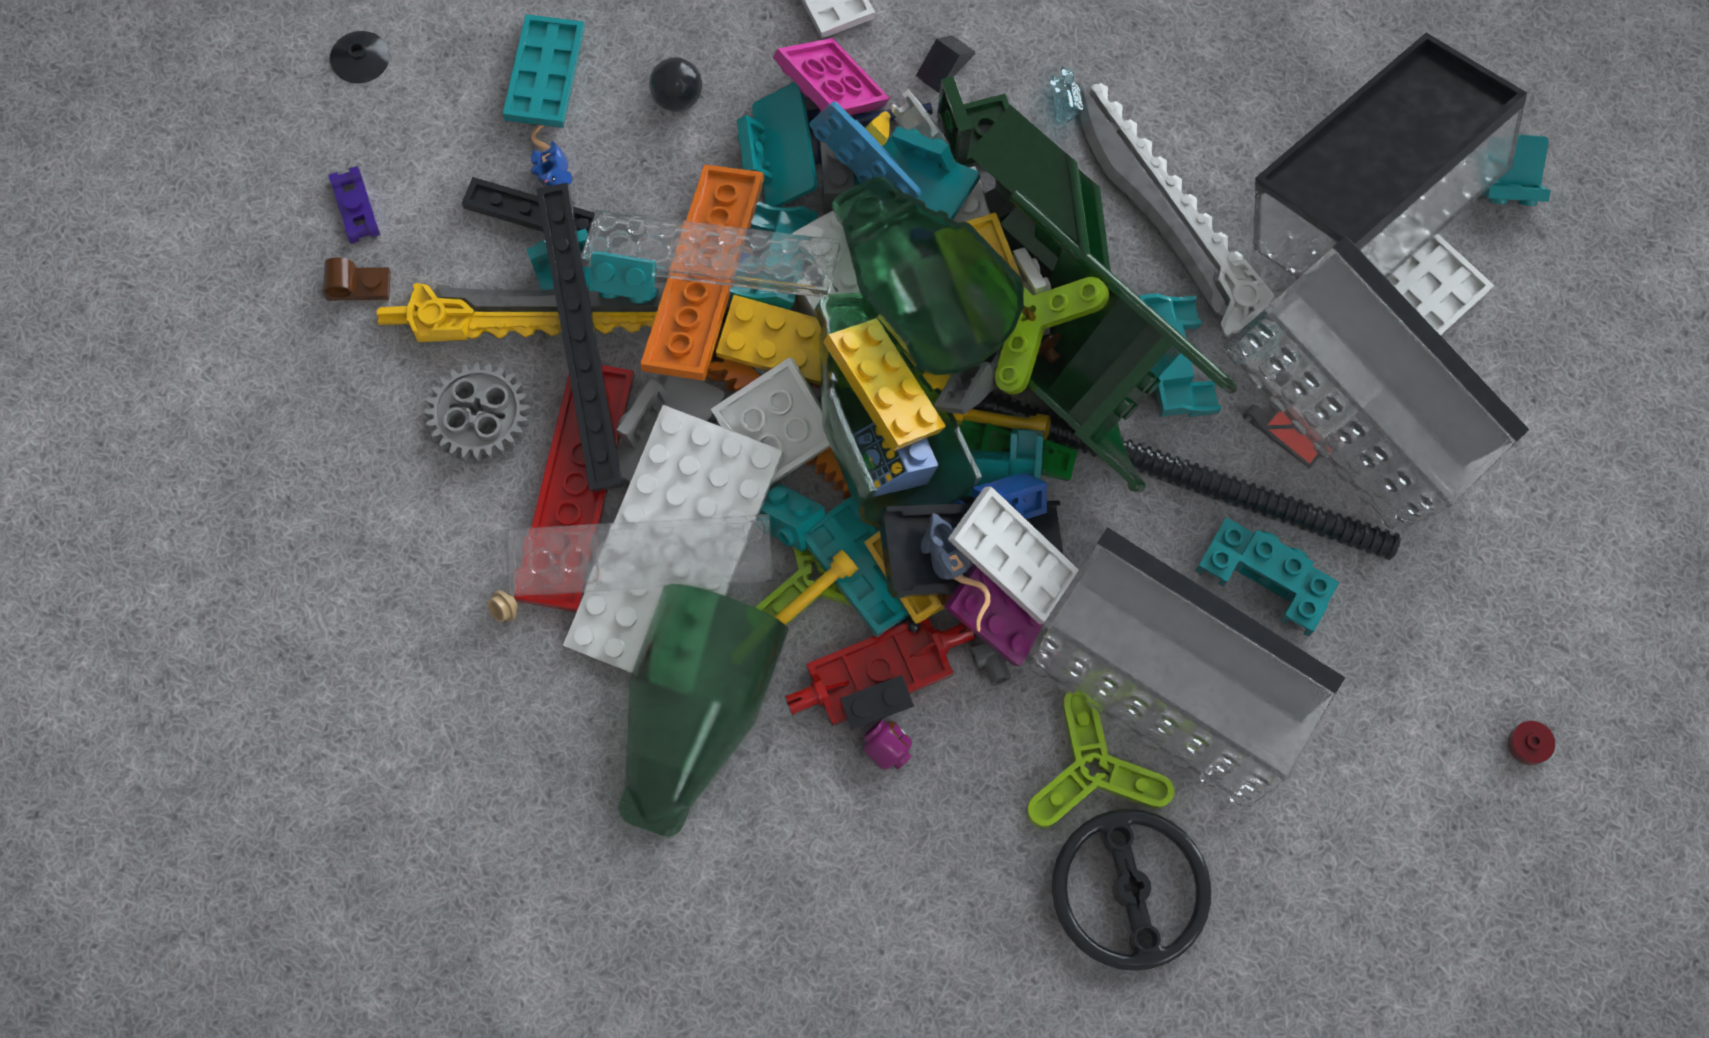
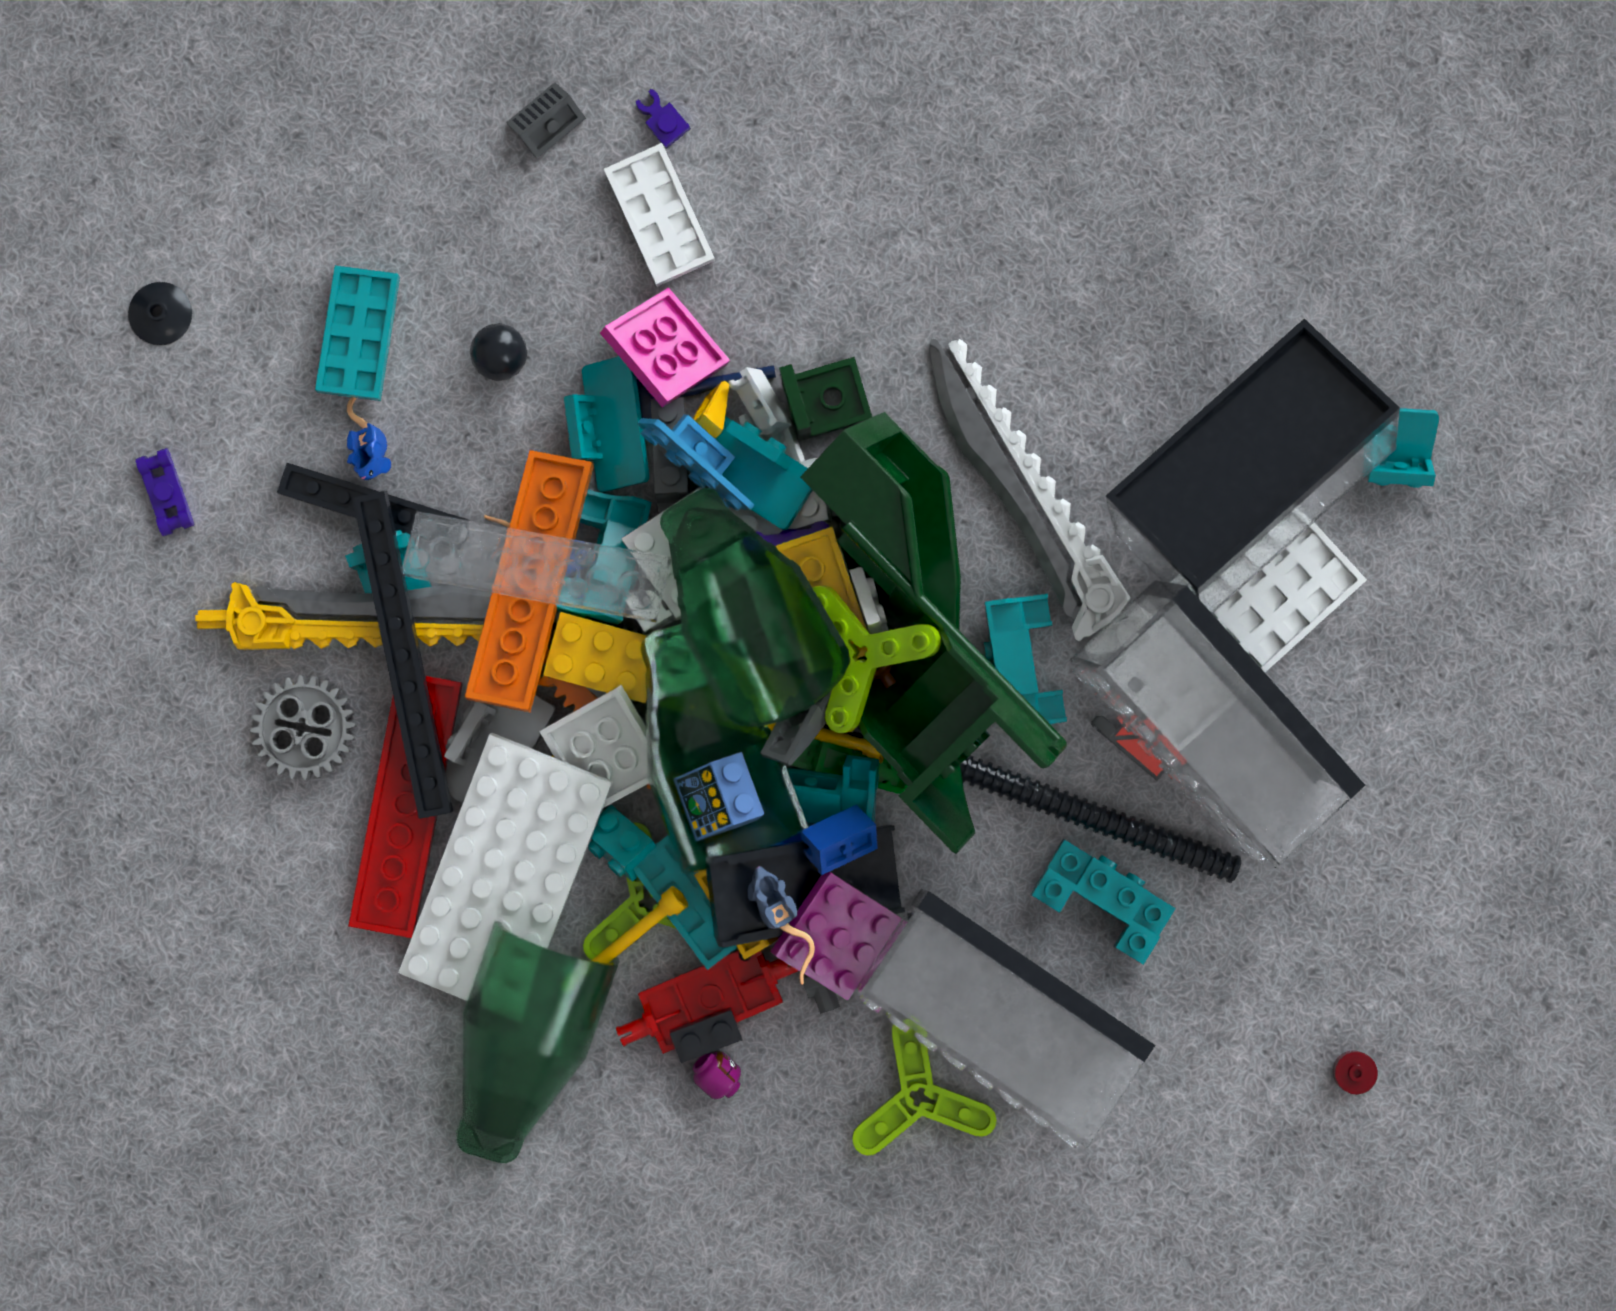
camera: 10 degrees right, 15 degrees up
(348, 282) = (172, 582): reddish brown plate -> none
(502, 607) = (337, 934): tan plate -> none
(622, 276) = (445, 594): teal bracket -> none
(639, 555) = (470, 890): clear plate -> none
(884, 384) = (710, 742): yellow plate -> none
(944, 60) = (791, 314): black slope -> none
(1013, 554) = (839, 905): white plate -> none
(1067, 100) = (921, 360): clear light blue plate -> none
(1135, 906) = (956, 1281): black piece -> none

